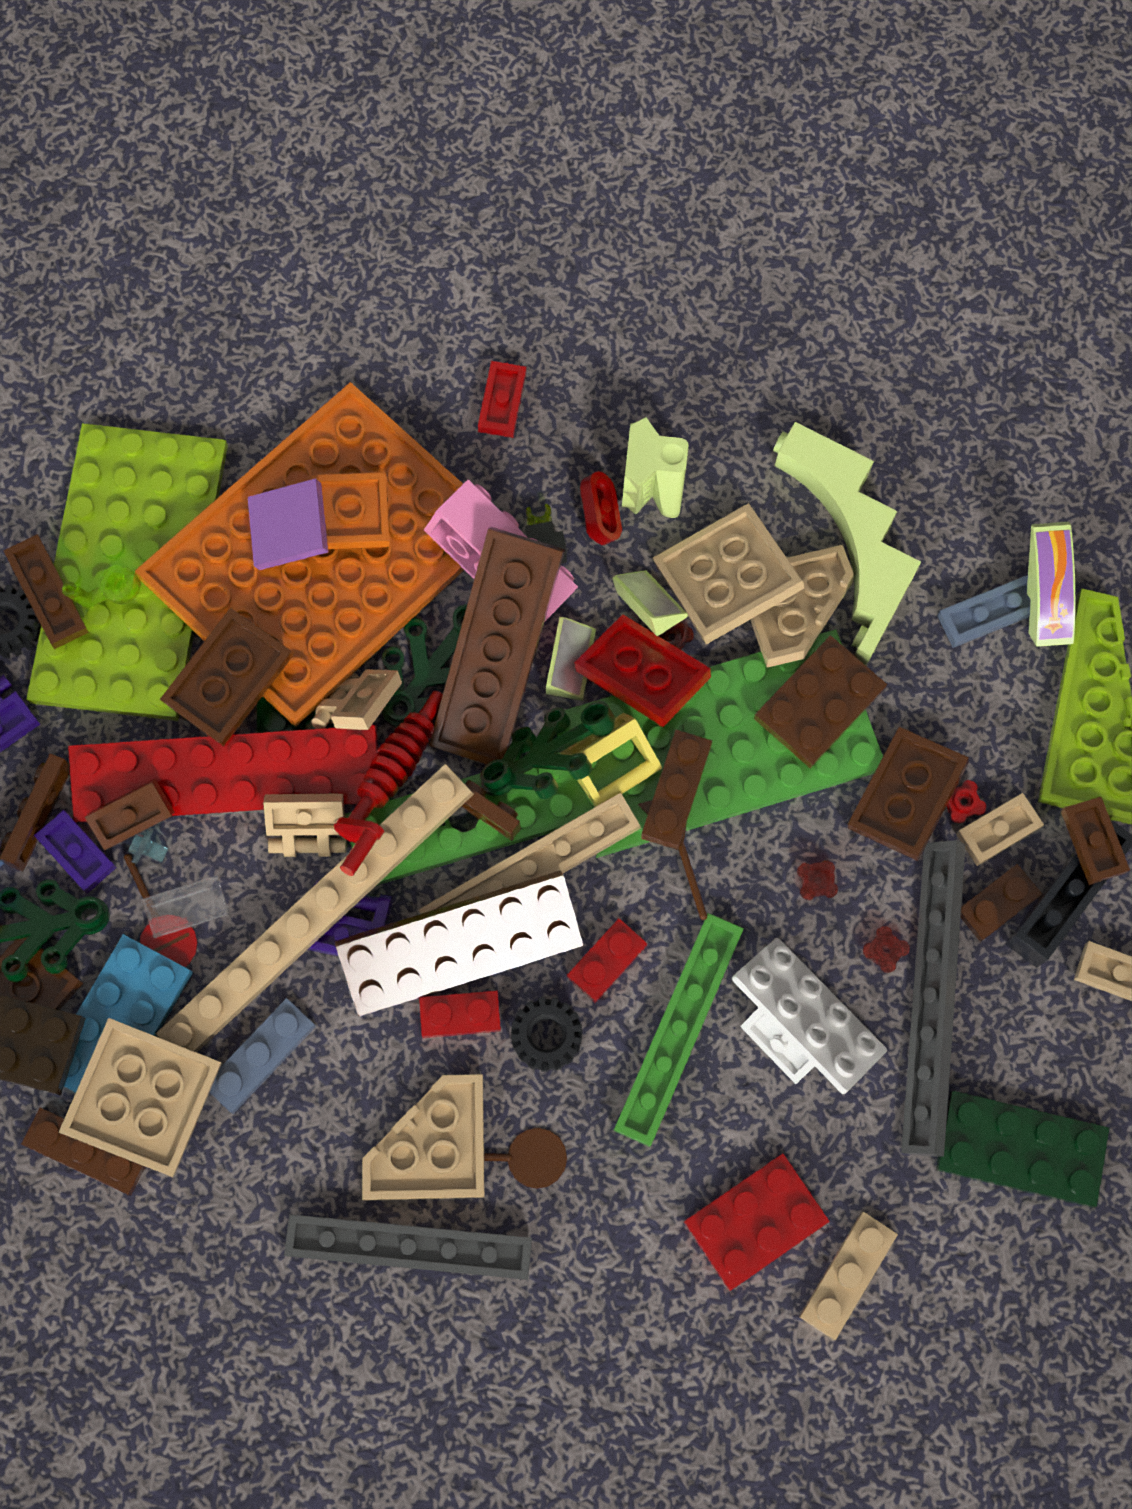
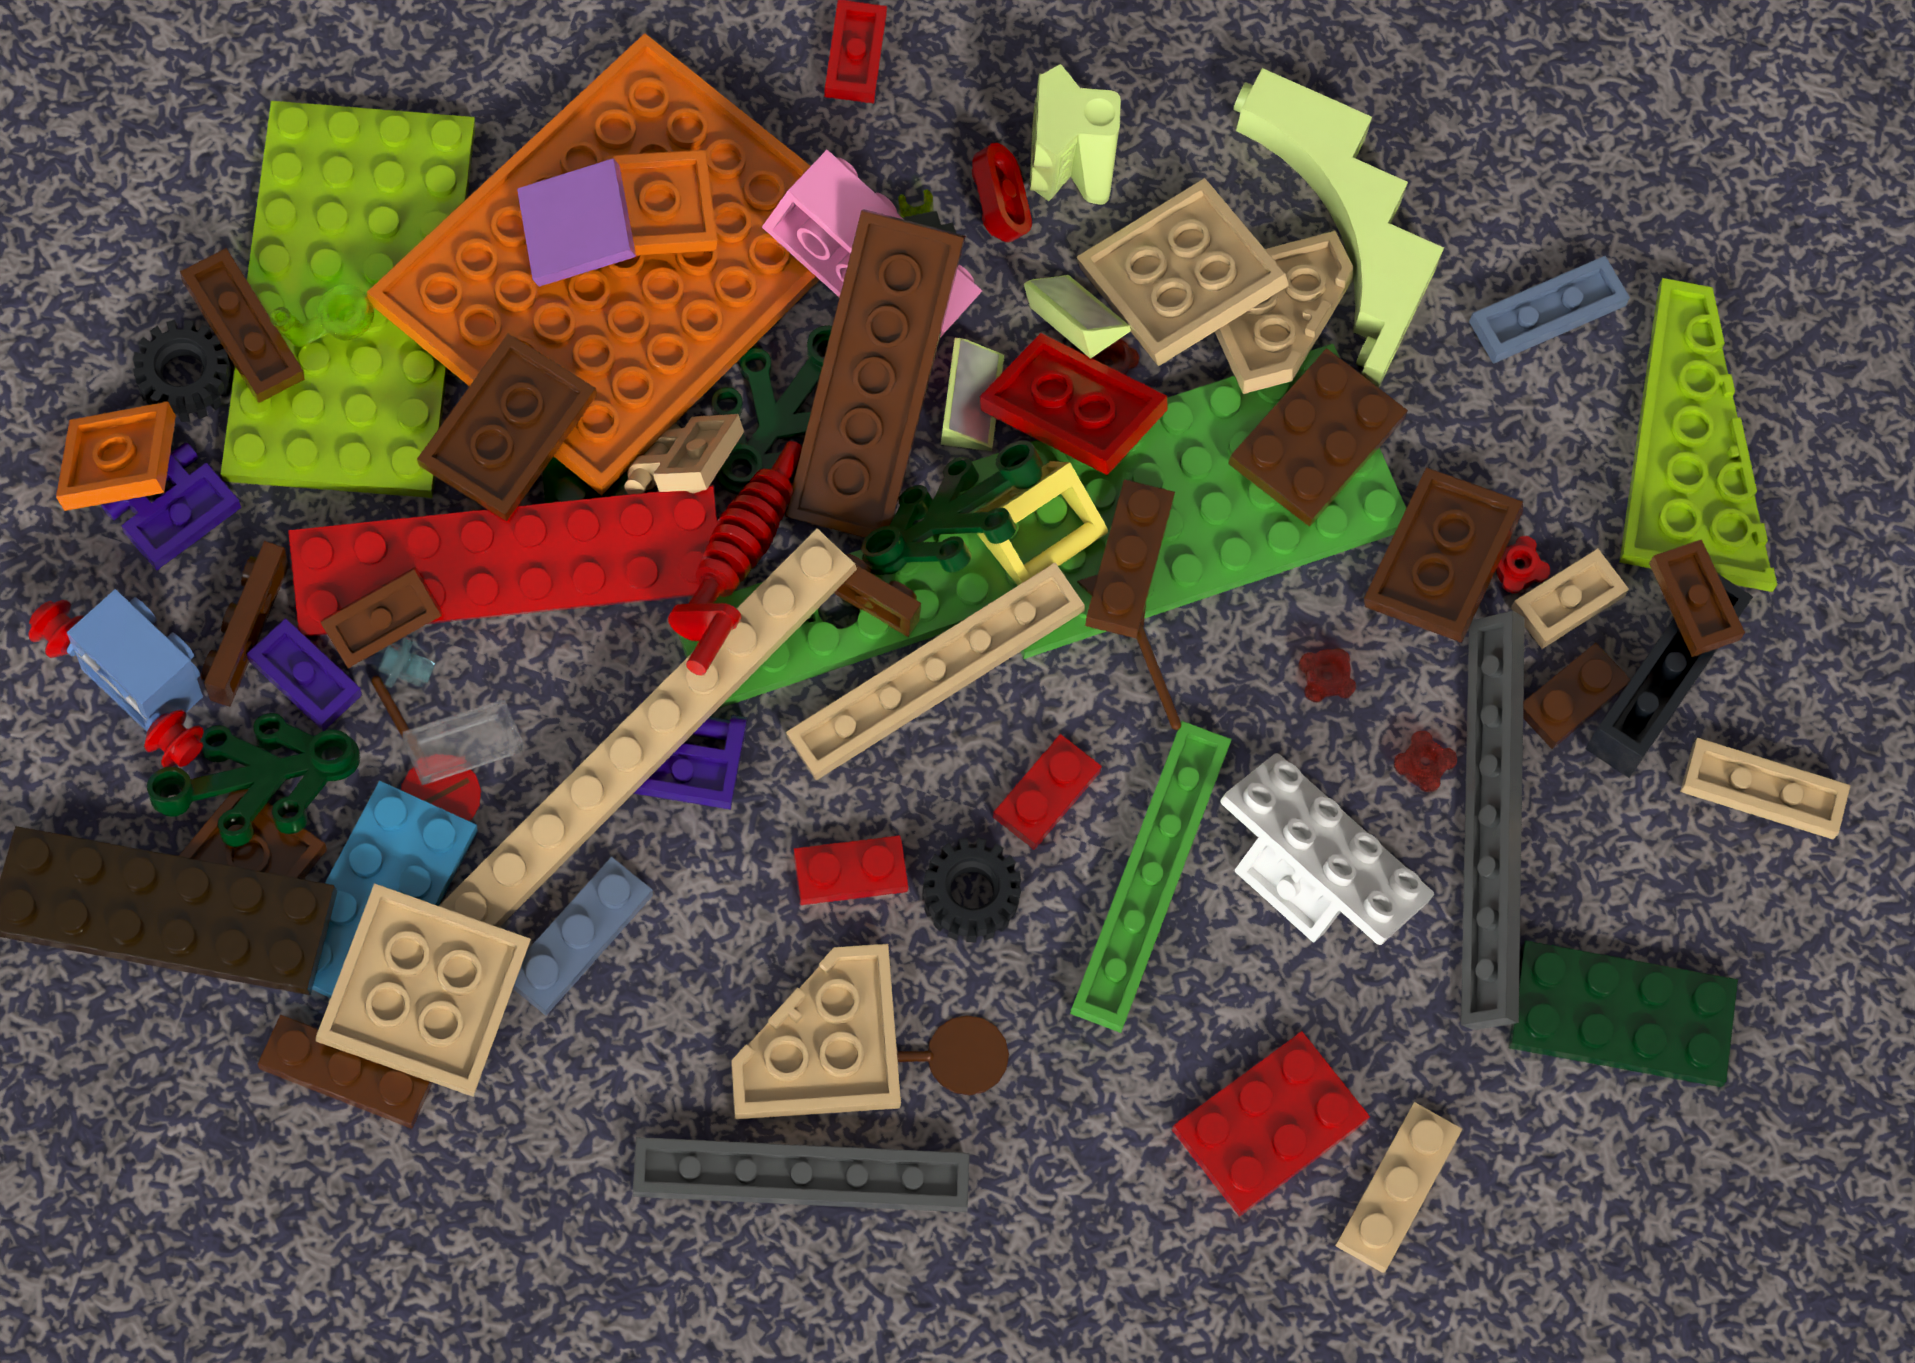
camera: 10 degrees left, 5 degrees down
(303, 815) = (623, 611): tan plate -> none
(459, 943) = (845, 772): plate -> none
(1051, 584) = (1621, 270): slope -> none

